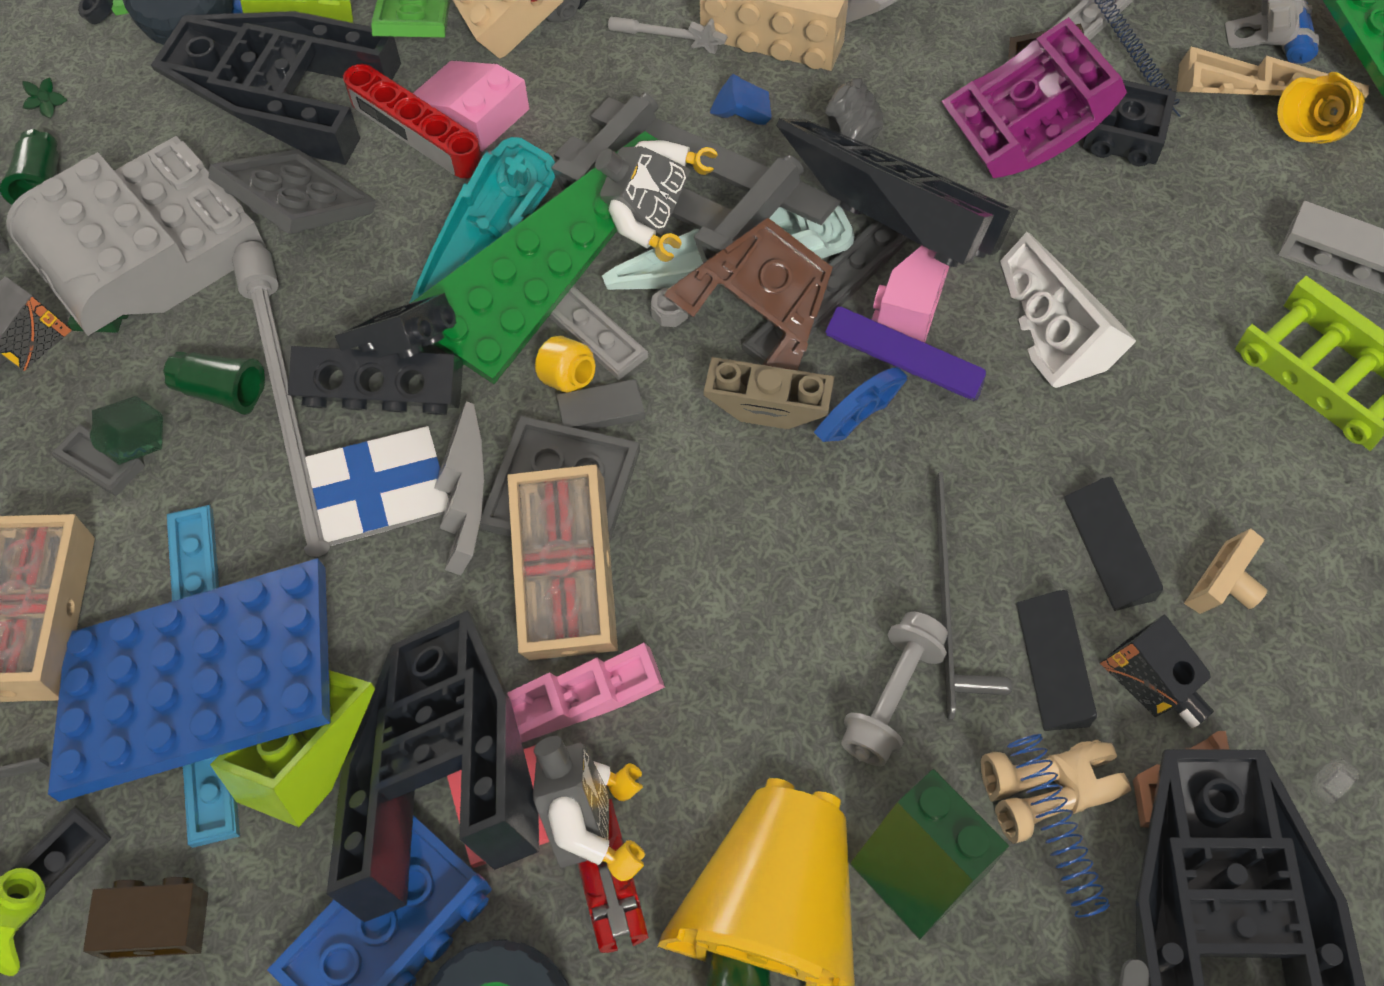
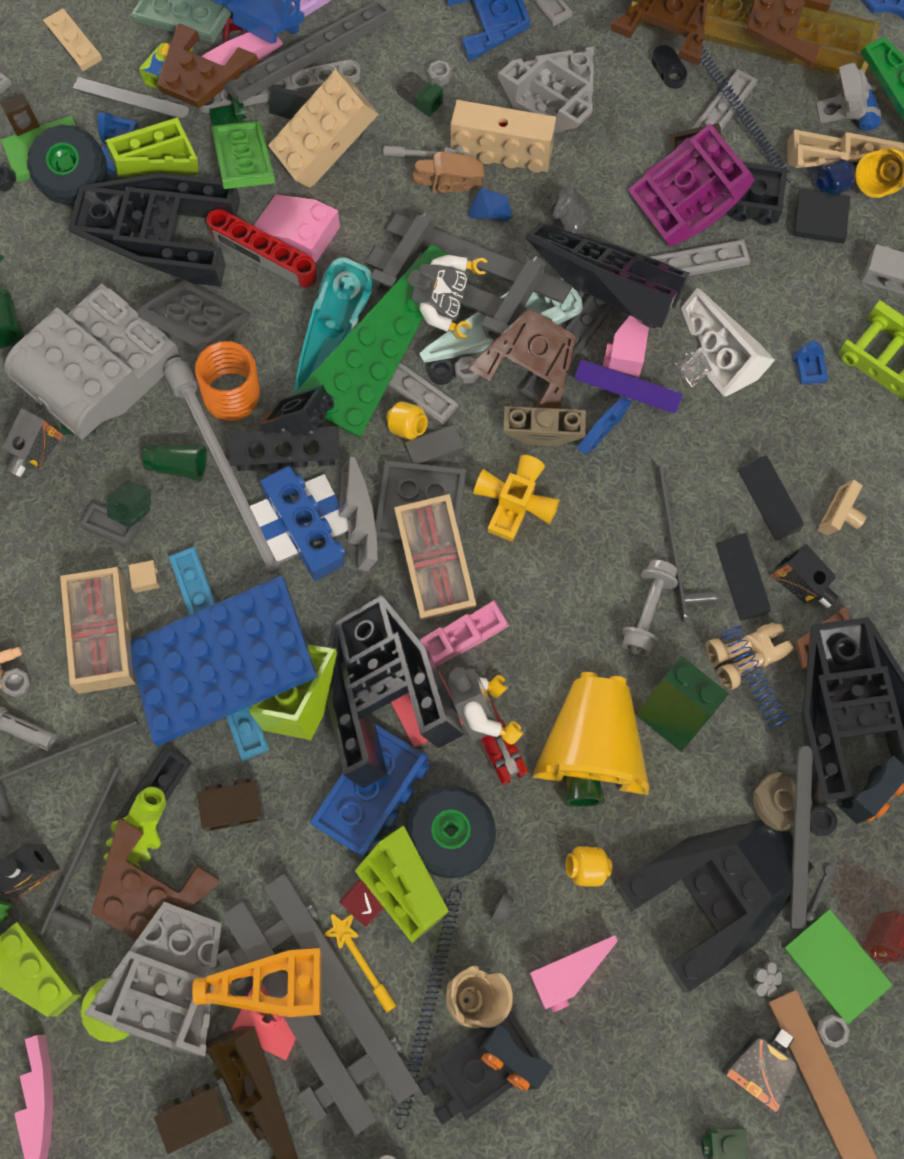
camera: 10 degrees left, 10 degrees up
(120, 538) = (143, 576): none -> tan piece
(284, 288) = (223, 359): none -> orange piece
(389, 547) = (317, 561): none -> blue brick
(631, 306) = (441, 371): none -> black tile
(691, 53) = (450, 172): none -> medium nougat hinge
(708, 493) = (516, 497): none -> yellow brick
(1010, 339) = (694, 367): none -> clear tile
(1052, 199) = (708, 258): none -> light grey tile
(1192, 355) = (811, 363): none -> blue tile
(1223, 160) = (822, 216): none -> black tile
(1248, 112) = (836, 177): none -> clear blue head

